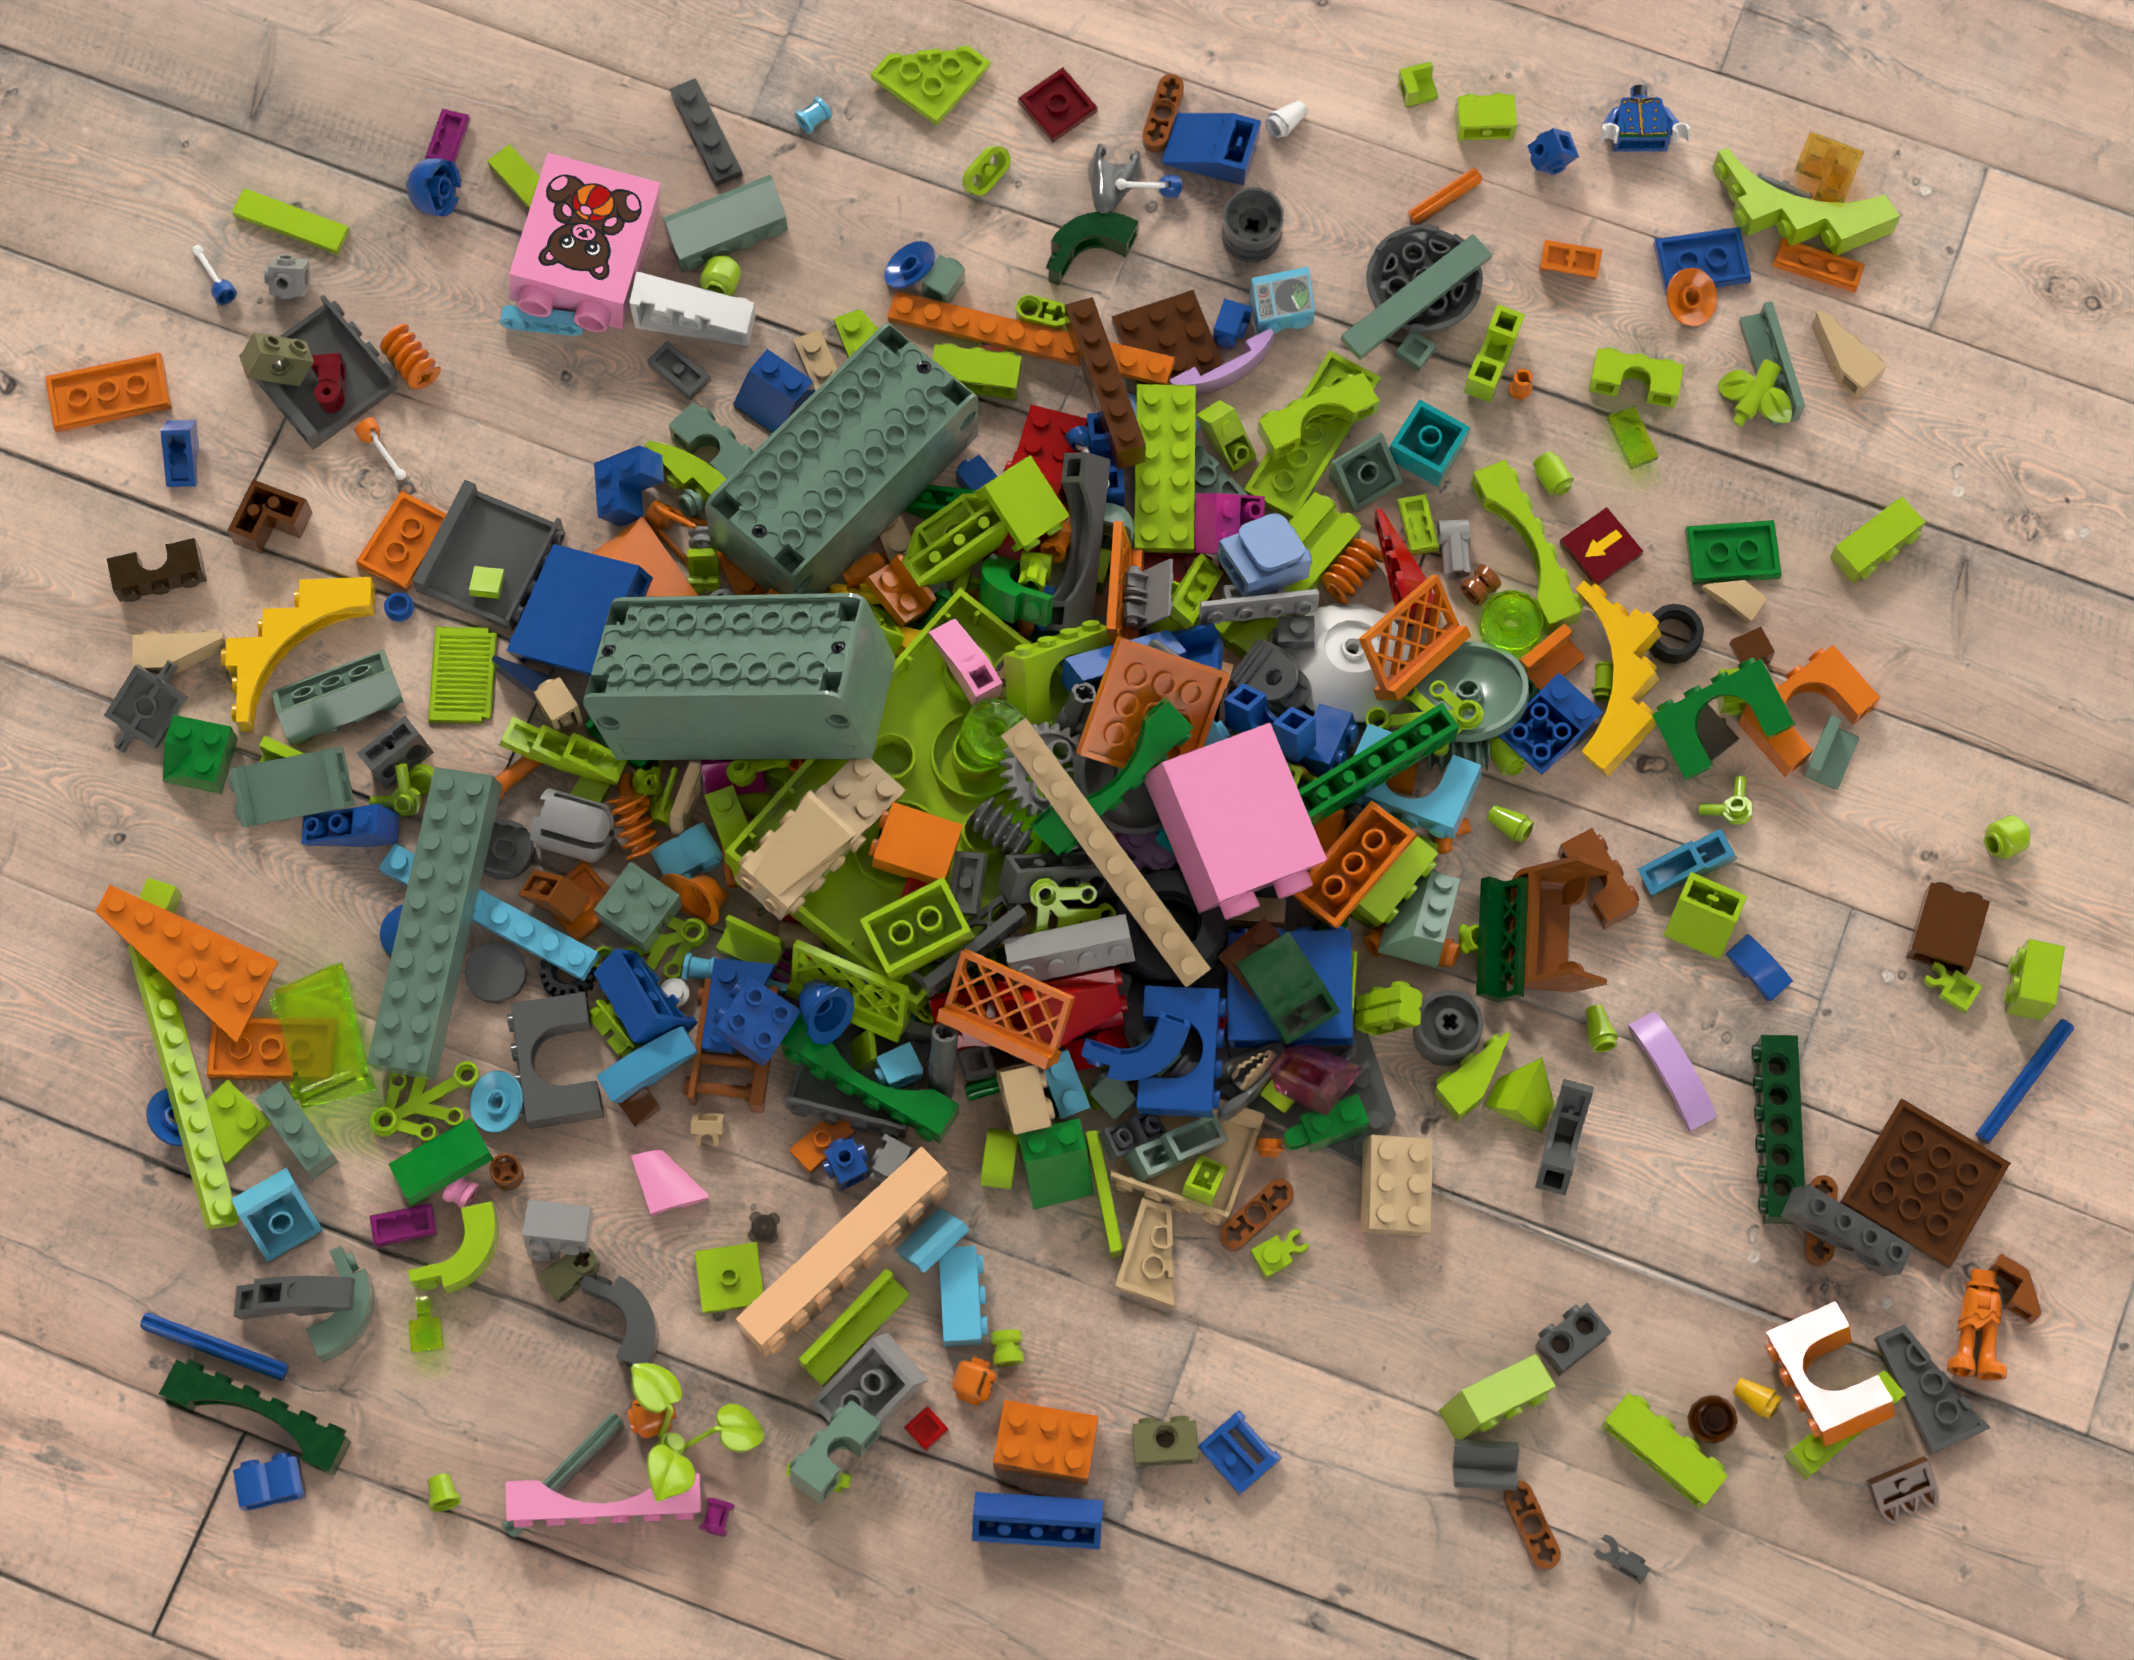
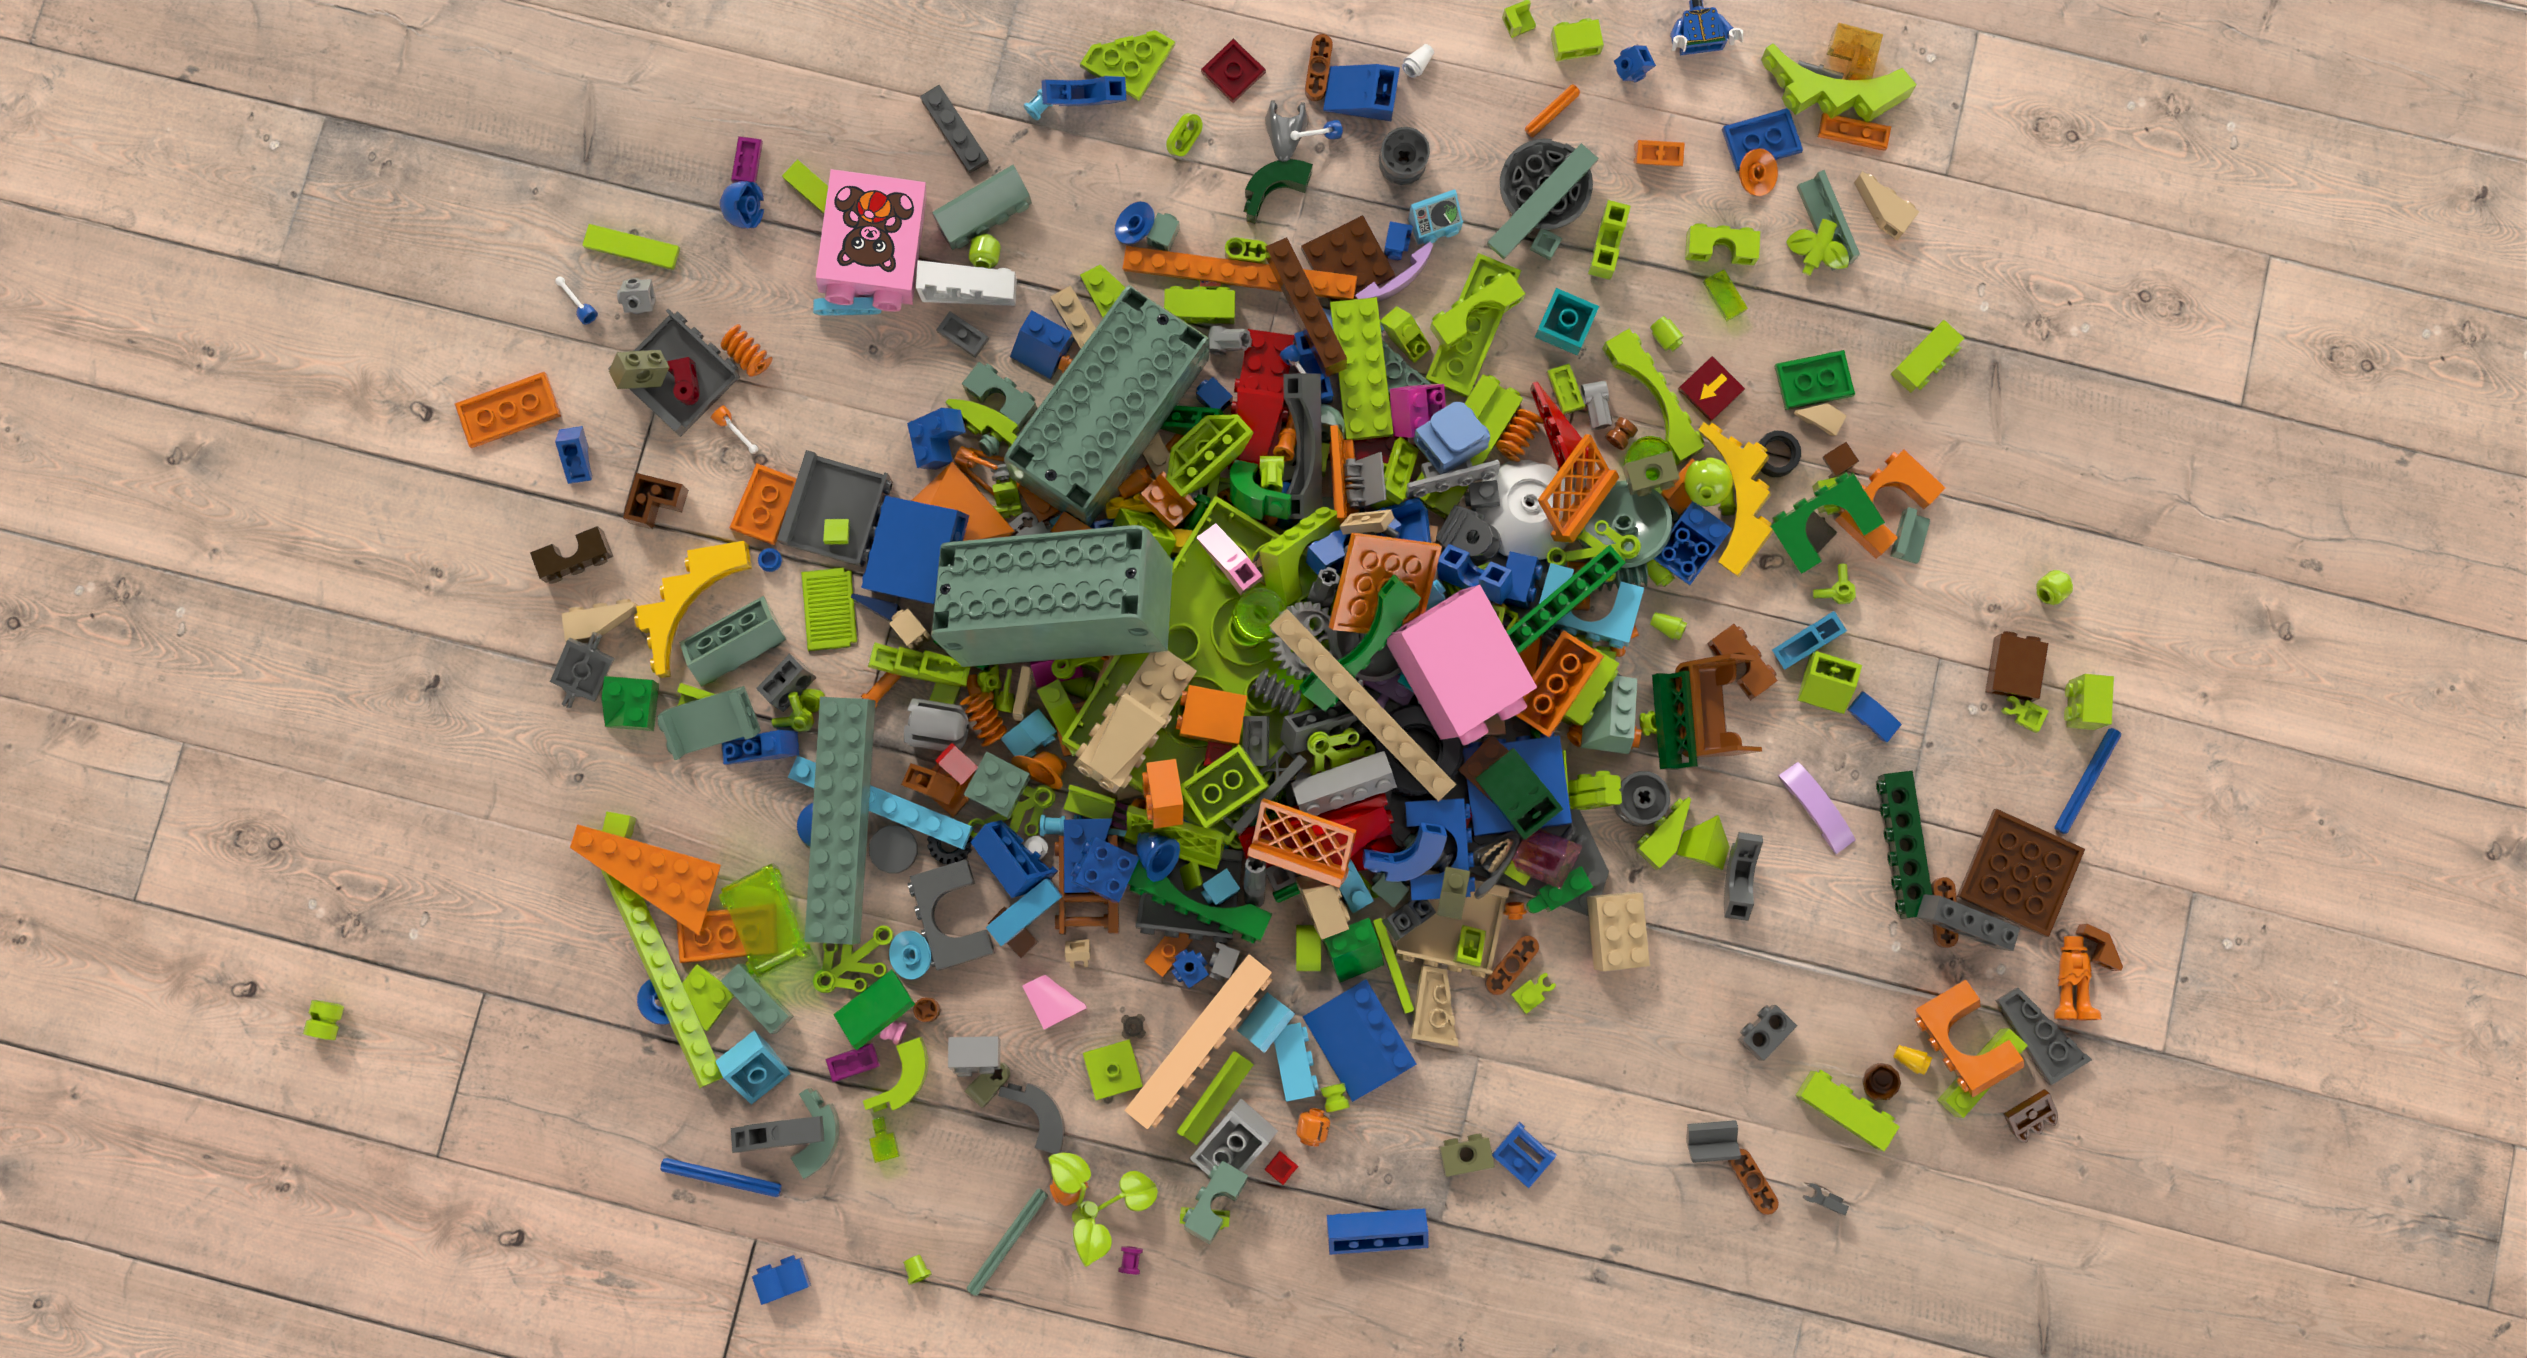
camera: 10 degrees left, 10 degrees up
(192, 1388) = (815, 1245): dark green arch -> none
(508, 851) = (888, 748): dark grey tile -> none
(534, 1501) = (989, 1270): bright pink arch -> none
(590, 870) = (956, 763): none -> slope
(605, 1021) = (984, 876): lime hinge -> none
(840, 926) = (1163, 793): none -> orange piece
(883, 107) = (1084, 92): none -> blue arch
(1003, 414) = (1228, 340): none -> light grey piece
(1024, 503) = (1257, 419): lime panel -> none
(1045, 1442) = (1375, 1168): orange brick -> none
(1049, 1280) = (1359, 1040): none -> blue slope
(1151, 636) = (1367, 522): none -> tan plate
(1176, 1148) = (1439, 927): sand green slope -> none
(1189, 1102) = (1453, 893): none -> olive slope
(1365, 472) = (1519, 352): sand green slope -> none
(1497, 1398) = (1716, 1088): lime wedge -> none
(1520, 386) = (1633, 262): orange pin -> none
(1521, 621) = (1661, 464): none -> olive brick
(1579, 651) = (1708, 482): none -> lime cylinder
(1600, 1031) = (1758, 783): lime cone -> none

